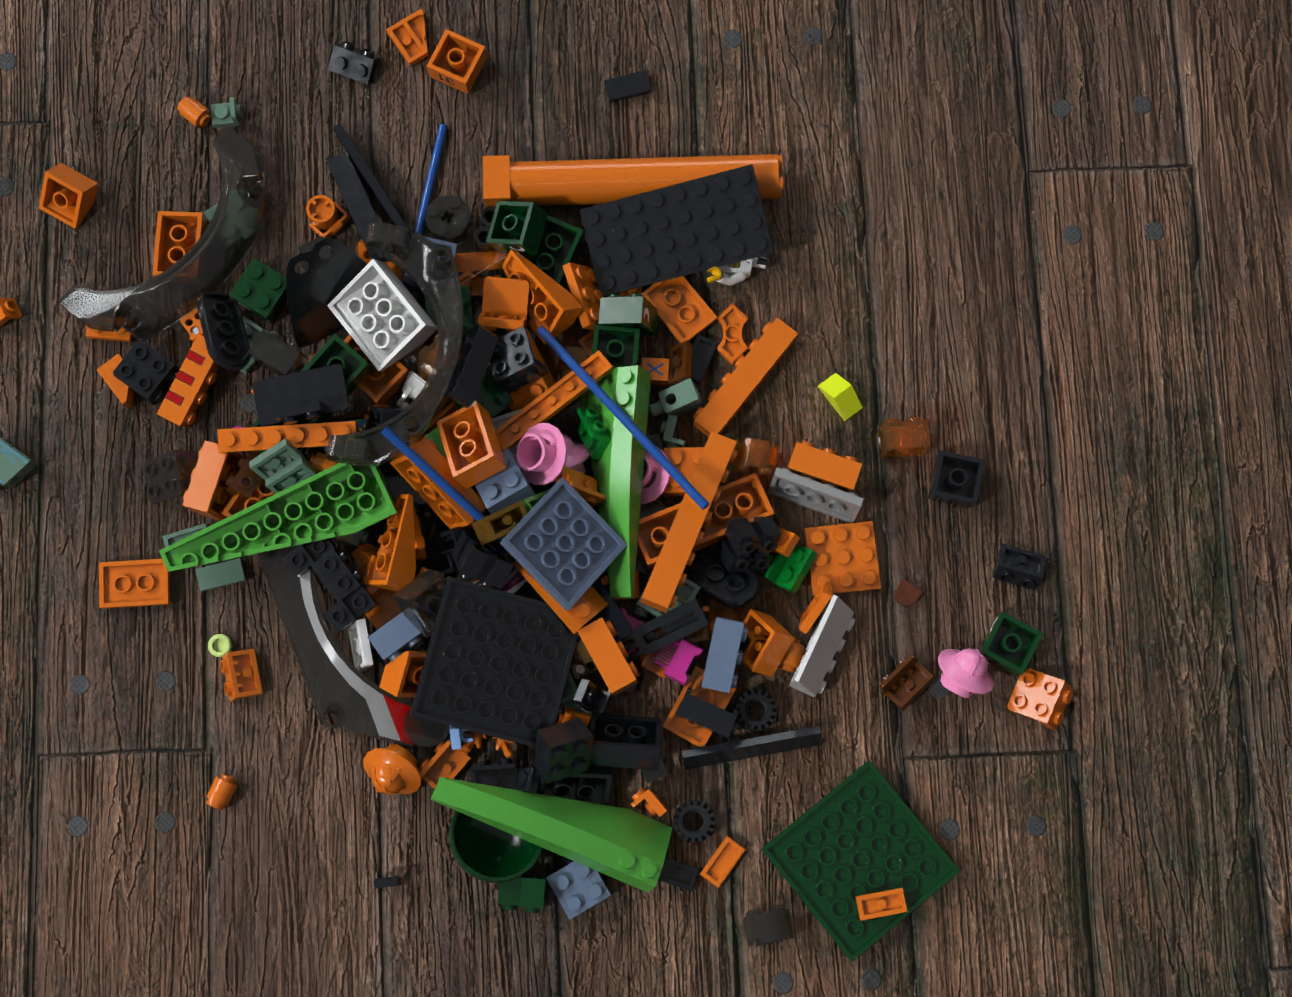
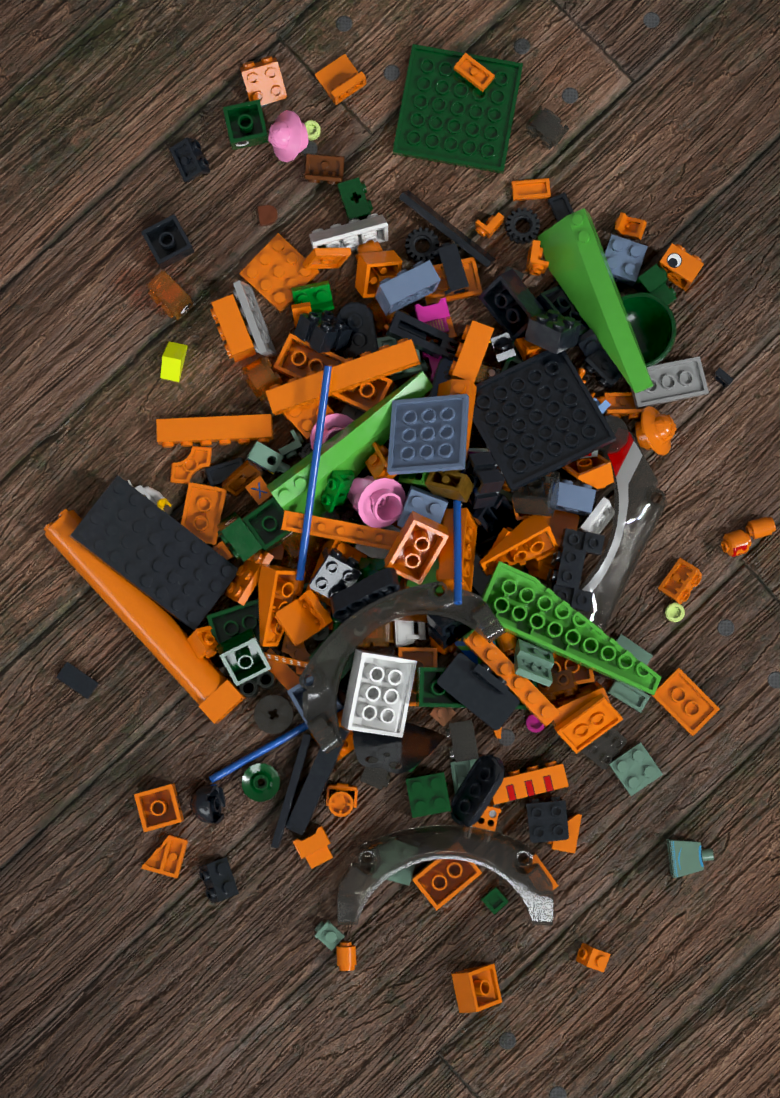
camera: 130 degrees left, 5 degrees up
(119, 489) = (635, 769): none -> sand green plate
(125, 273) = (494, 900): none -> dark green tile
(188, 472) = (588, 723): none -> orange tile
(228, 756) = (736, 543): none -> orange head
(307, 161) = (314, 848): none -> orange piece
(402, 153) = (253, 789): none -> dark green dish
(422, 103) = (208, 804): none -> black cylinder
(422, 831) = (673, 383): none -> light grey plate
(524, 933) = (680, 266): none -> orange brick
(561, 206) = (203, 642): none -> orange brick
(605, 923) = (630, 227): none -> orange bracket
(720, 795) = (493, 224): none -> orange bracket
(845, 674) = (349, 190): none -> dark green brick
(955, 704) = (313, 129): none -> yellowish green tile
(982, 772) = (340, 79): none -> orange bracket

